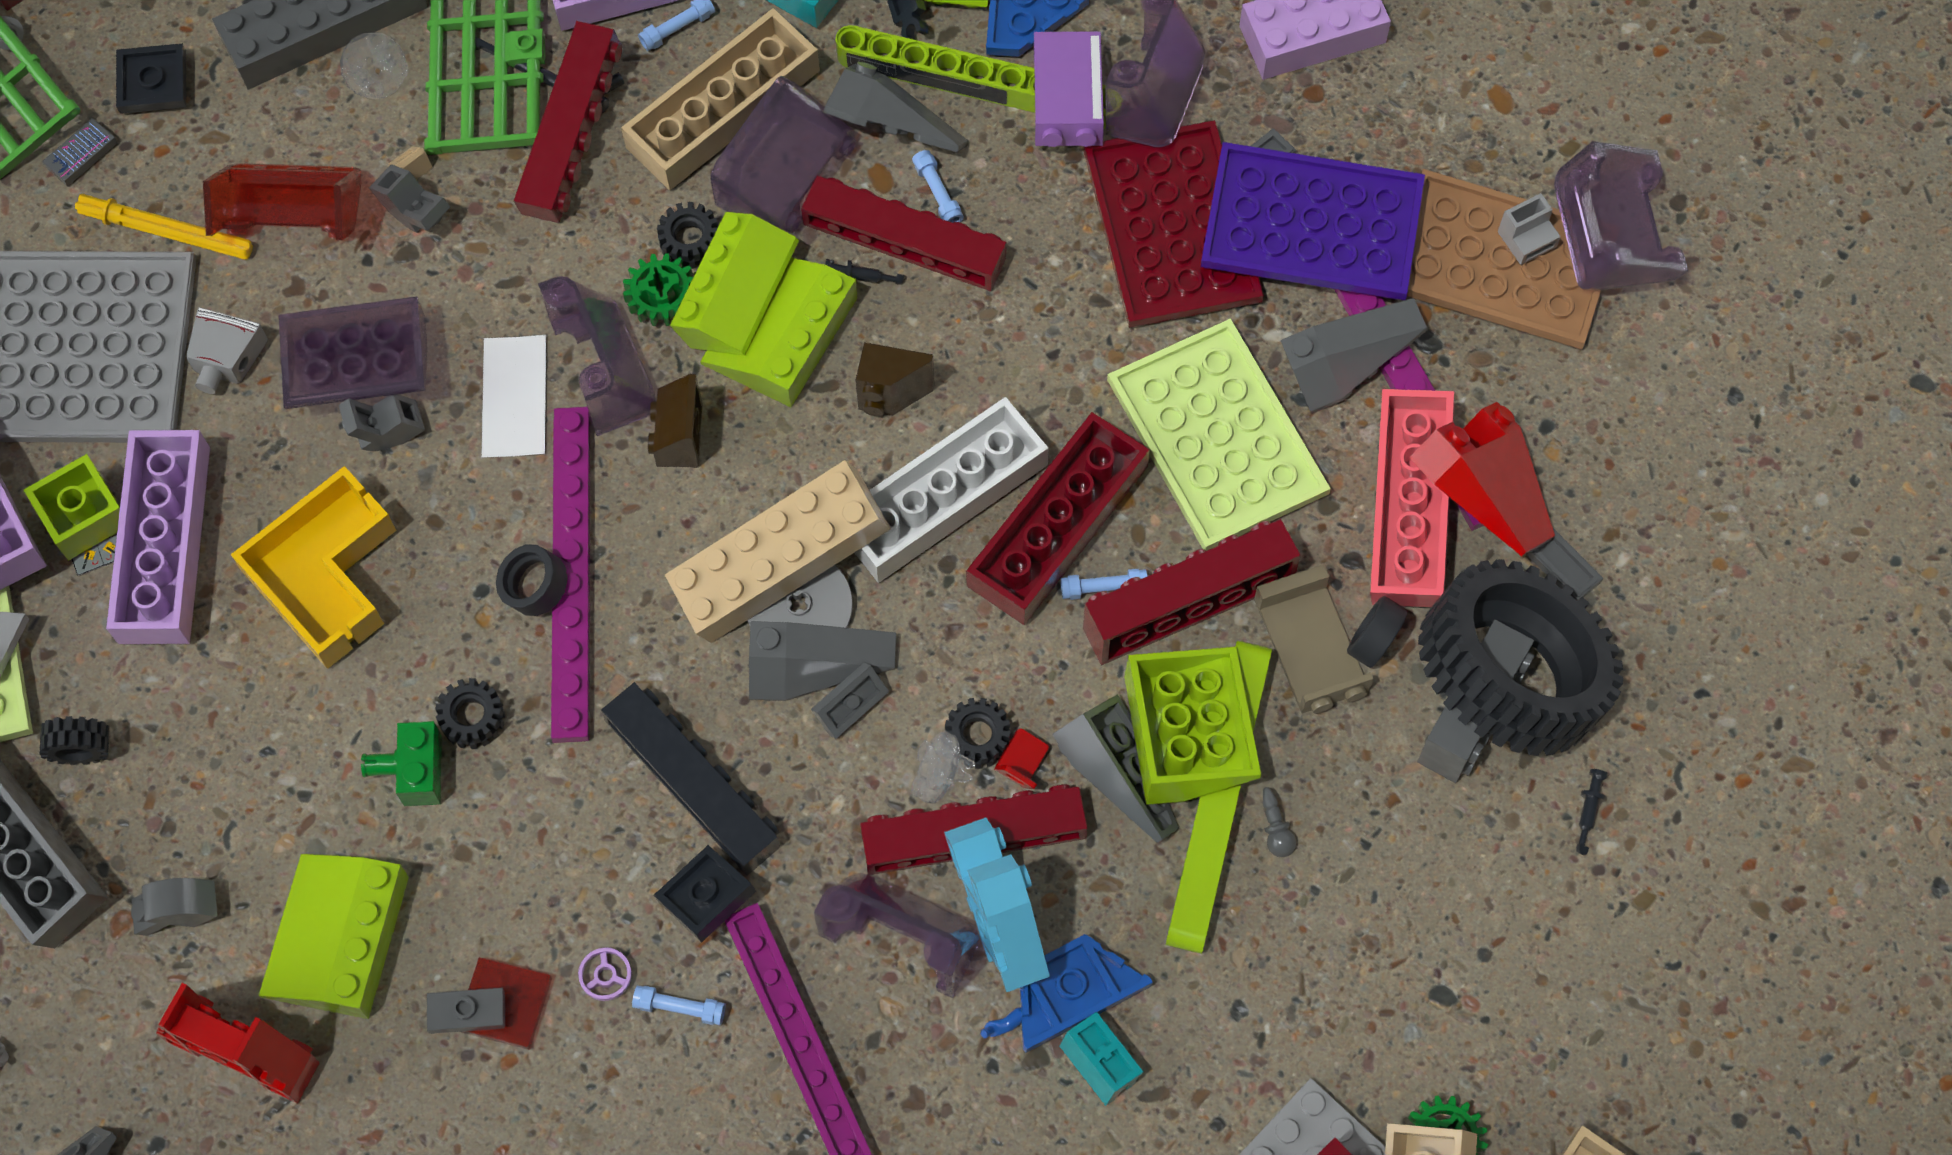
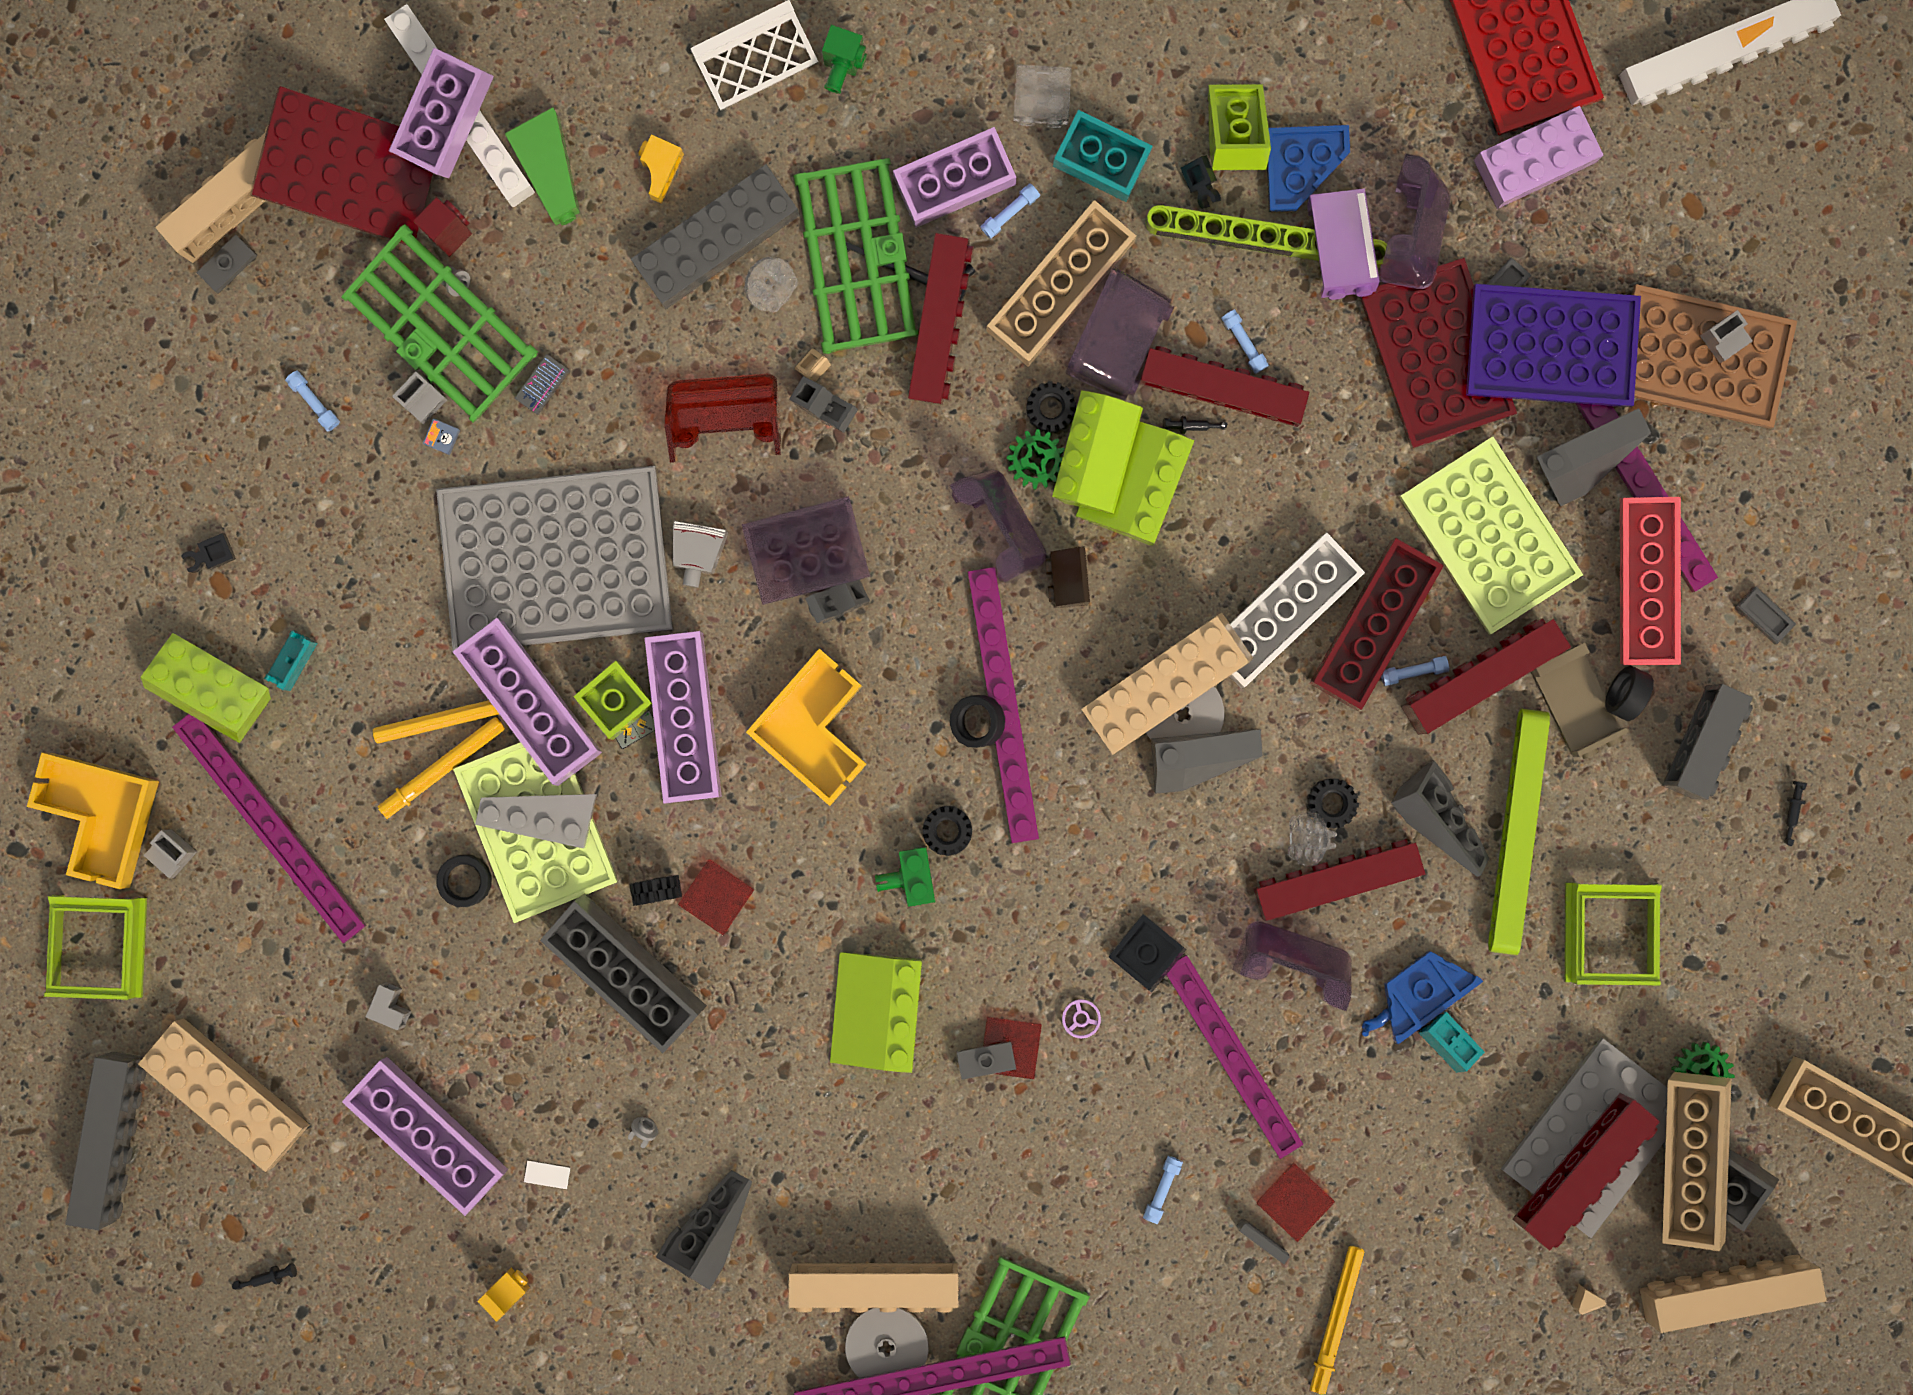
camera: 10 degrees left, 20 degrees up
(111, 212) = (622, 445): yellow axle -> none
(151, 78) = (586, 311): black plate -> none
(155, 766) = (716, 897): none -> clear red tile
(173, 902) = (756, 1006): dark grey brick -> none
(253, 1051) = (822, 1116): red wedge -> none
(514, 396) = (932, 560): white sticker -> none
(647, 998) = (1163, 1037): light blue bar -> none
(691, 778) = (1122, 864): black brick -> none
(849, 700) = (1233, 788): dark grey plate -> none
(874, 98) = (1189, 274): dark grey wedge -> none
(892, 379) = (1230, 523): dark brown slope -> none
(999, 902) = (1373, 953): medium azure wedge -> none
(1022, 758) = (1367, 821): red bracket -> none
(1190, 723) = (1495, 784): lime slope -> none
(1280, 841) = (1565, 858): dark grey bar -> none
(1338, 877) = (1575, 929): none -> lime piece
(1489, 476) = (1714, 568): red wedge -> none
(1561, 633) = (1776, 688): black tyre -> none
(1611, 218) = (1793, 322): clear purple windscreen -> none

